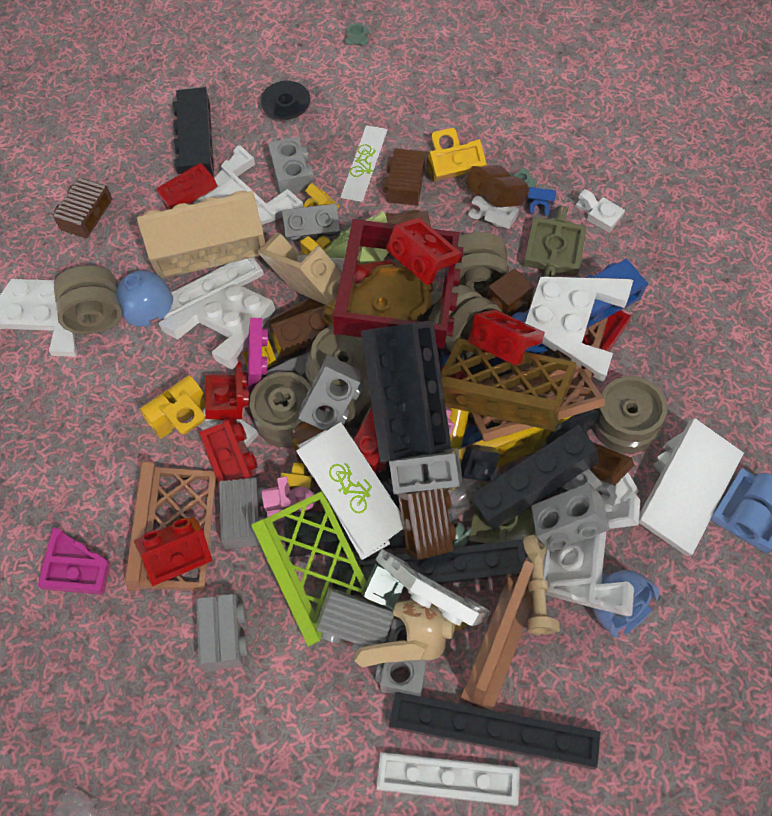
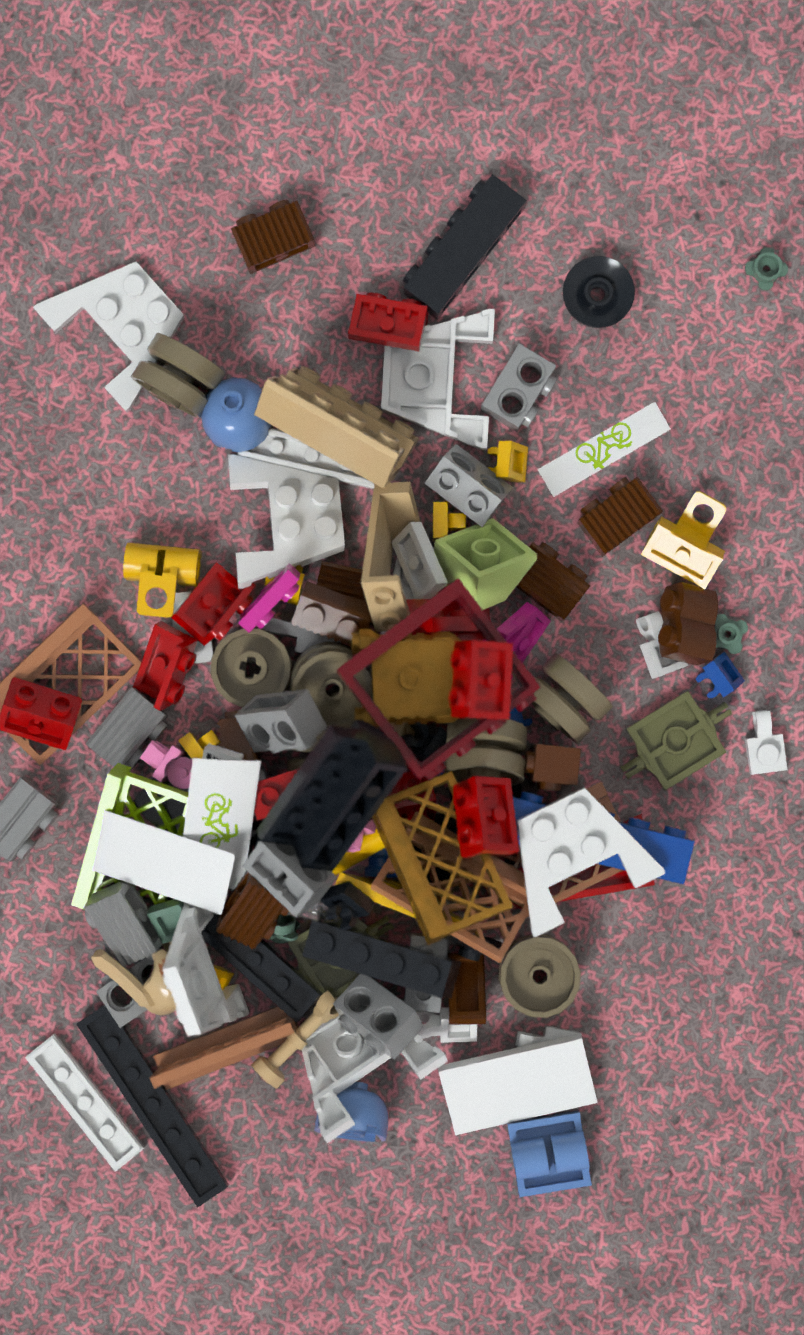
camera: 40 degrees right, 25 degrees up
(341, 546) = (163, 862): none -> white sticker

